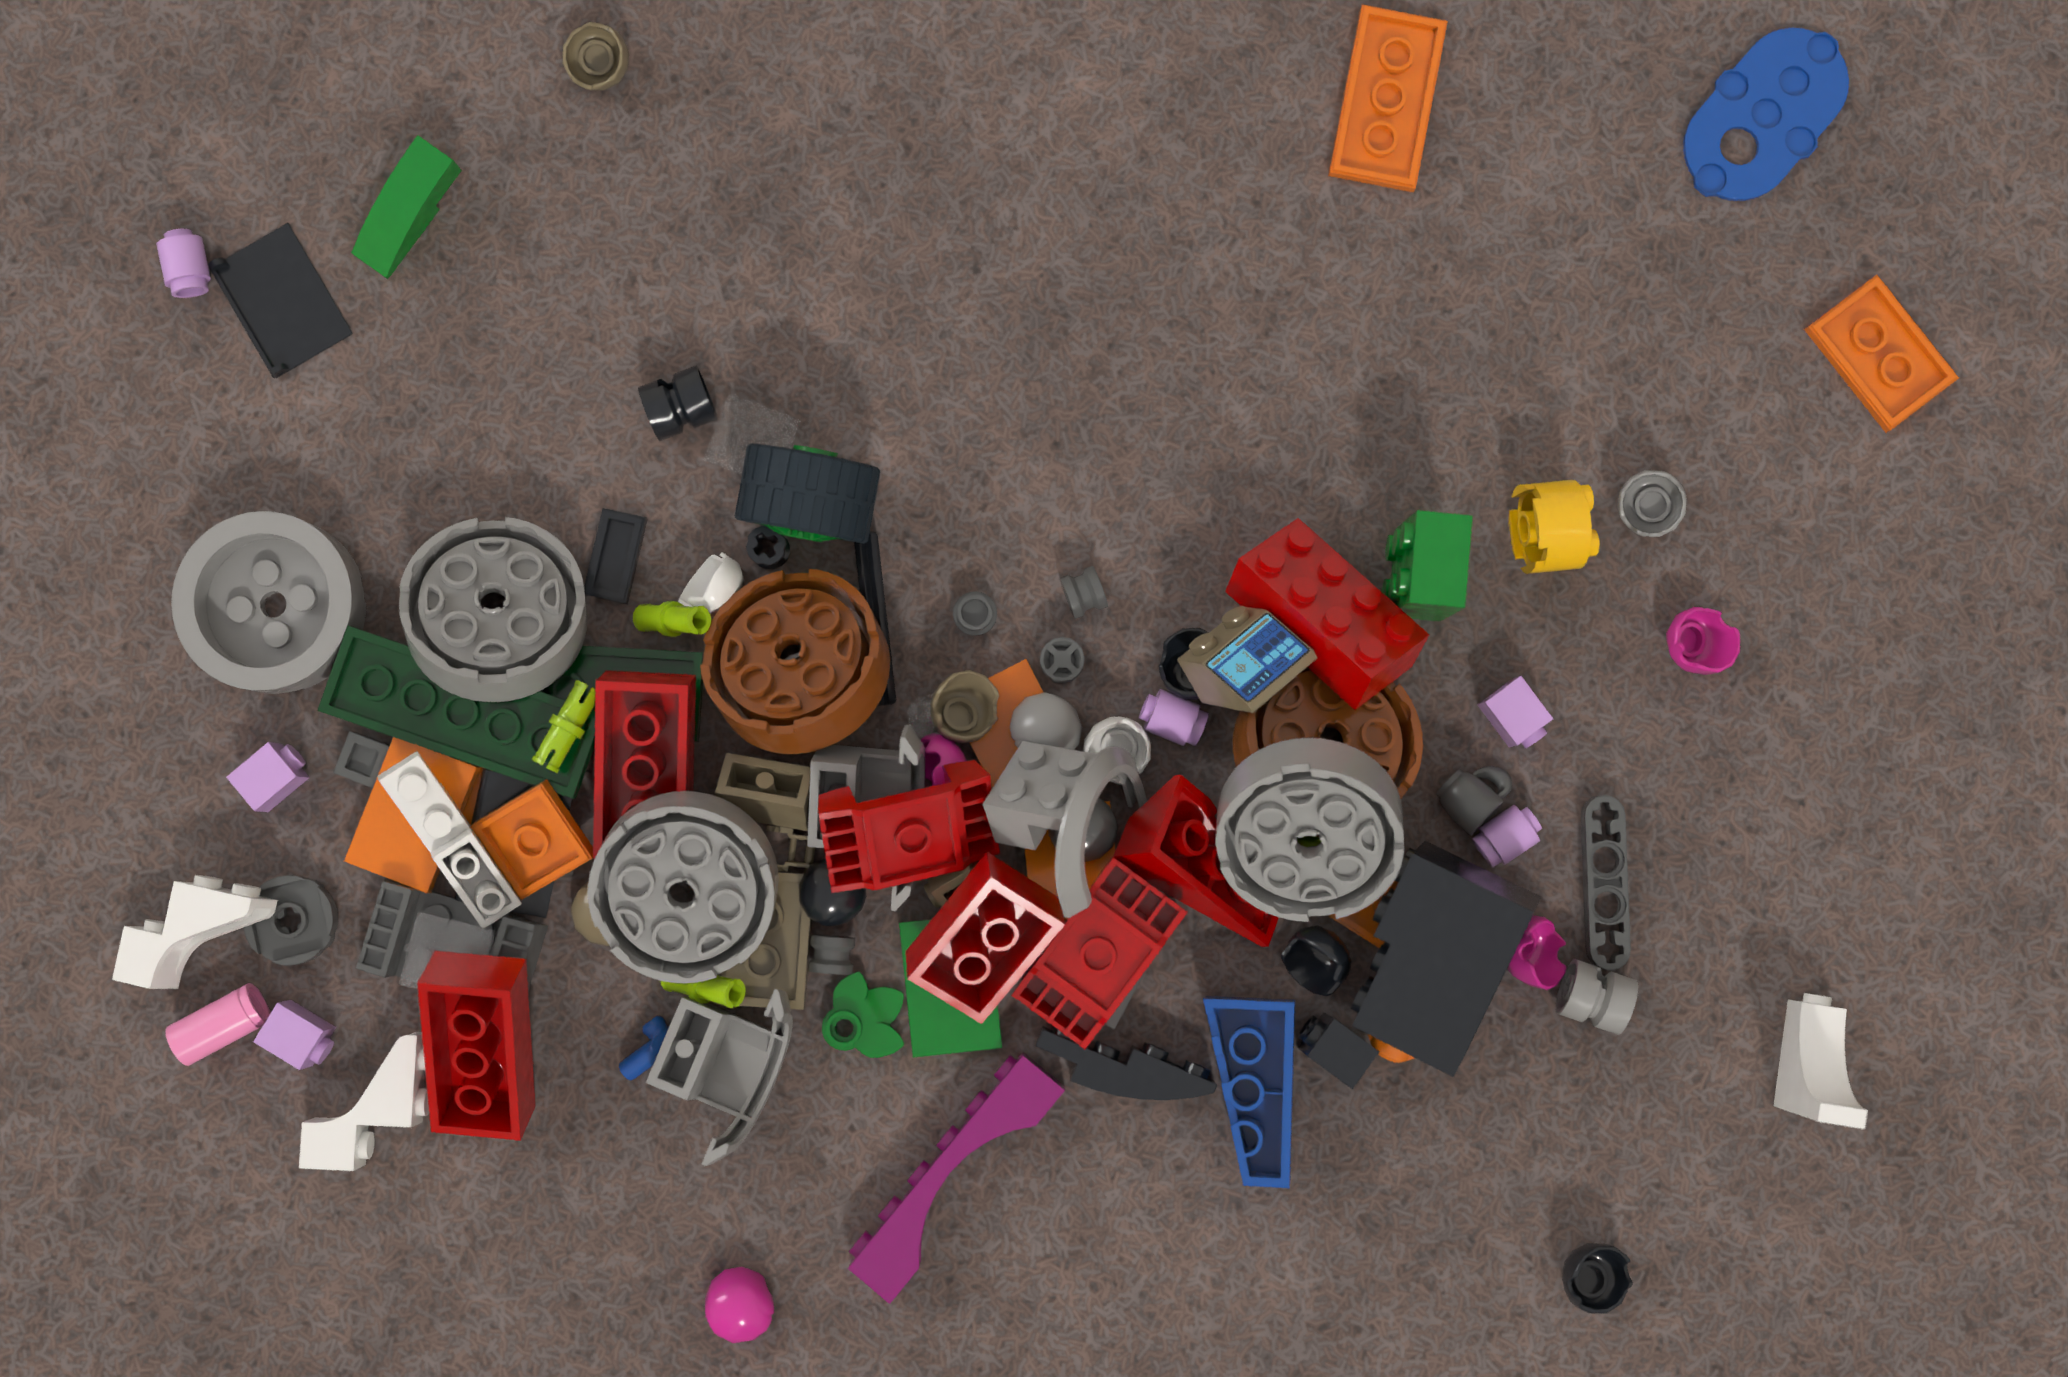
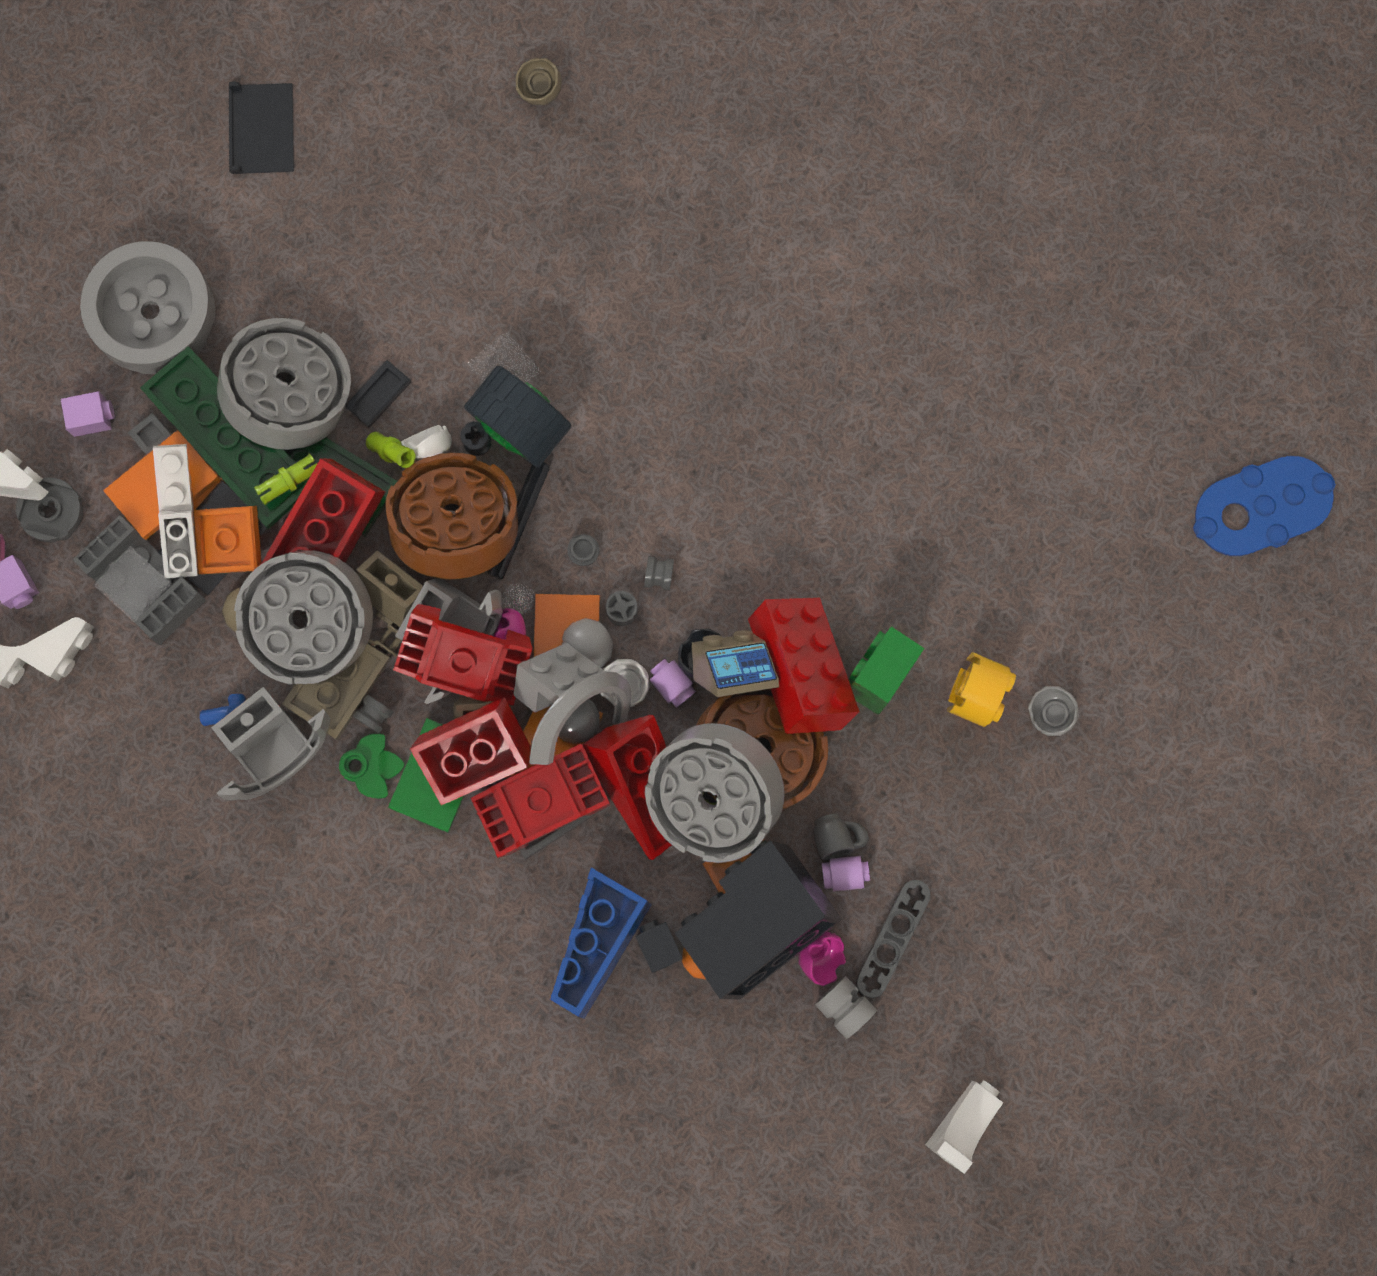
camera: 25 degrees right, 5 degrees down
(183, 263) = (214, 74): lavender brick -> none
(405, 206) = (369, 111): green slope -> none
(477, 1044) = (120, 646): red brick -> none
(677, 403) = (469, 319): black wheel -> none
(717, 990) = (283, 692): lime pin -> none
(739, 1305) = (190, 905): dark pink hair -> none
(822, 904) = (389, 682): black hair -> none
(964, 706) = (542, 602): dark tan hair -> none
(1015, 1103) = (308, 922): magenta arch -> none
(1143, 1074) = (525, 897): black slope -> none
(1320, 971) = (679, 895): black hair -> none
(1388, 98) = (1024, 368): orange tile -> none
(1516, 713) = (893, 798): lavender brick -> none
(1596, 1277) = (737, 1189): black hair -> none
(1702, 641) = (1038, 816): dark pink hair -> none
(1881, 353) = (1257, 697): orange tile -> none

